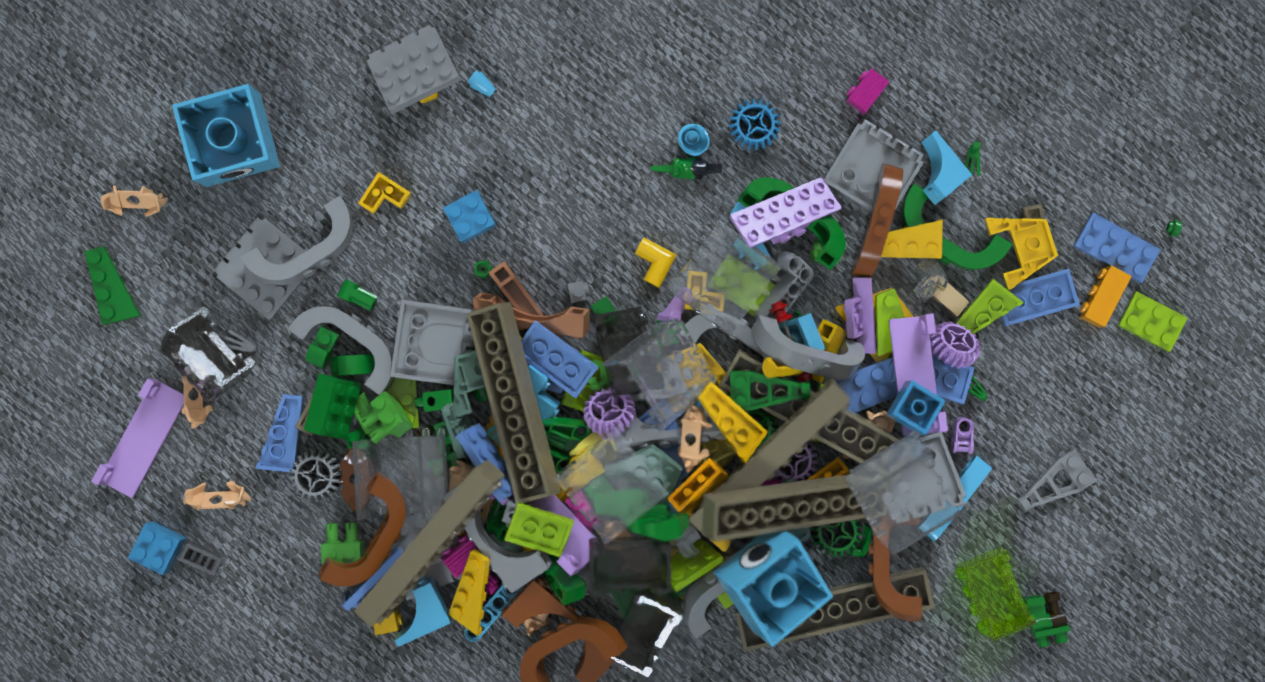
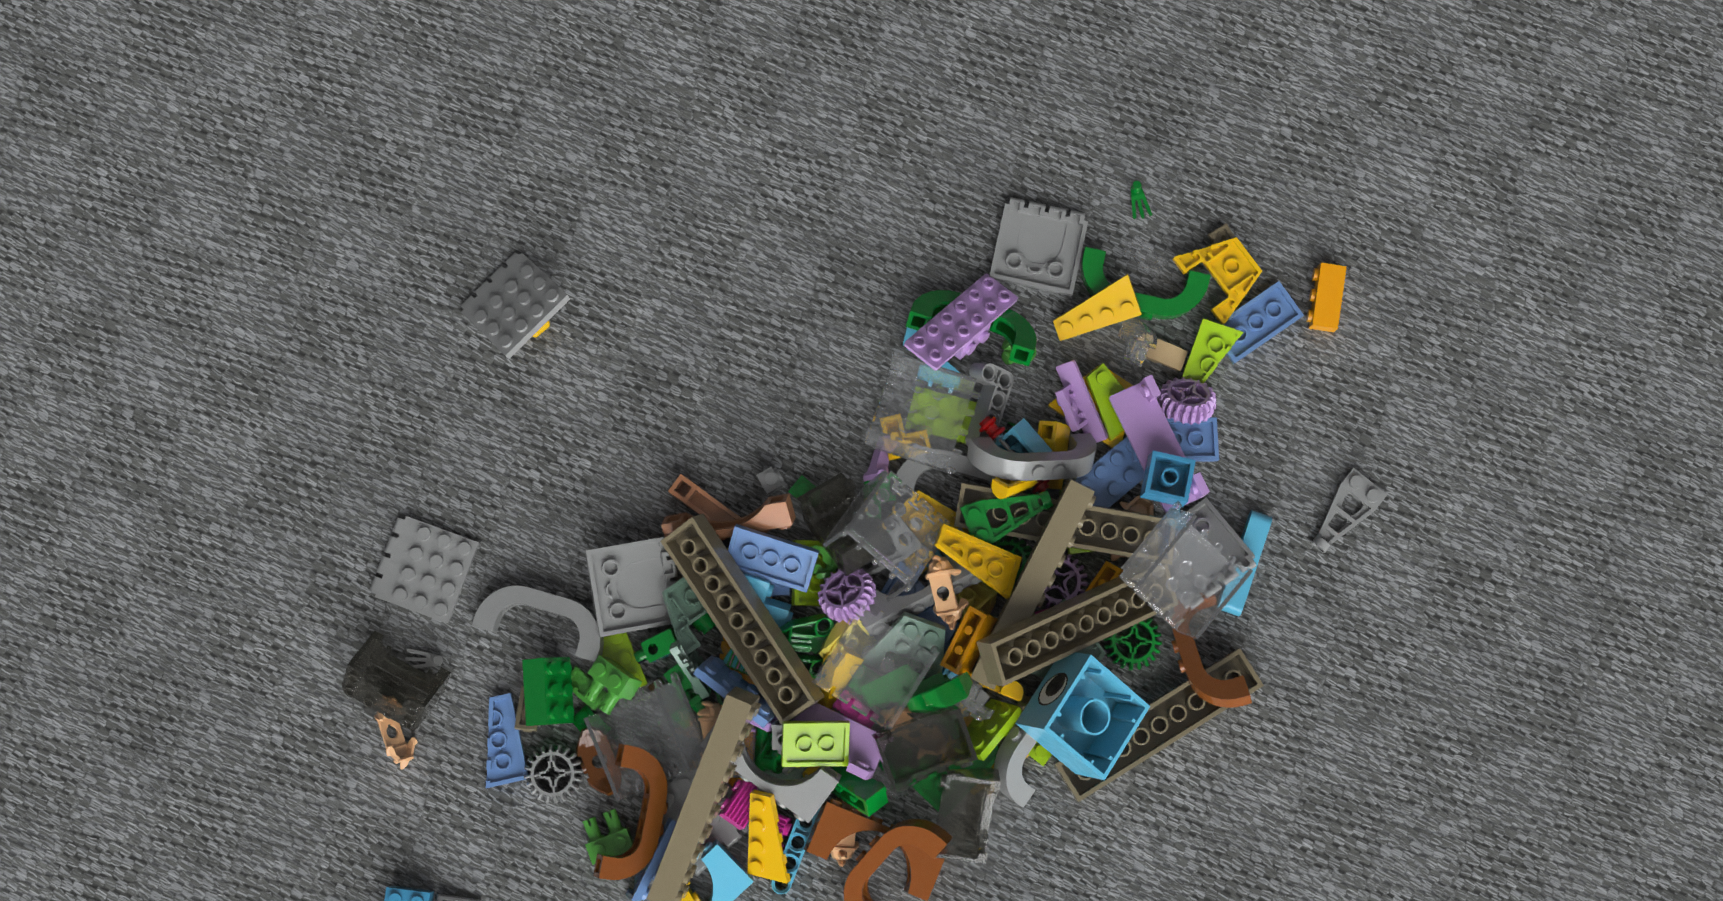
camera: 25 degrees left, 5 degrees down
(110, 291) = (263, 650): green wing -> none
(117, 200) = (240, 550): light nougat piece -> none
(142, 438) = (351, 798): lavender bracket -> none
(200, 499) = (437, 842): light nougat piece -> none
(226, 135) = (339, 441): medium azure brick -> none
(314, 258) = (474, 541): light grey arch -> none
(321, 349) = (515, 633): green brick -> none
(352, 365) = (554, 640): green brick -> none
(353, 293) = (529, 563): green piece -> none
(381, 189) = (525, 441): yellow brick -> none
(469, 217) = (627, 440): dark azure brick -> none
(480, 83) = (591, 295): medium azure cone -> none
(482, 264) = (654, 491): green plate -> none
(660, 260) = (845, 416): yellow brick -> none
(689, 168) = (843, 310): animal -> none
(693, 139) = (837, 278): medium azure hair -> none
(762, 129) = (906, 243): dark azure gear -> none
(864, 546) = (1167, 645): green piece -> none
(867, 91) = (1003, 167): dark pink brick -> none
(888, 192) = (1062, 298): dark orange arch -> none
(946, 168) = (1115, 221): medium azure arch -> none
(962, 437) = (1230, 496): lavender piece -> none
(978, 390) = (1229, 441): green piece -> none
(994, 594) = (1321, 650): clear neon green windscreen -> none
(1047, 623) = (1388, 663): green hips -> none
(1116, 247) = (1321, 242): medium blue plate -> none
(1152, 321) = (1386, 306): lime plate -> none
(1174, 228) = (1373, 201): green plate -> none

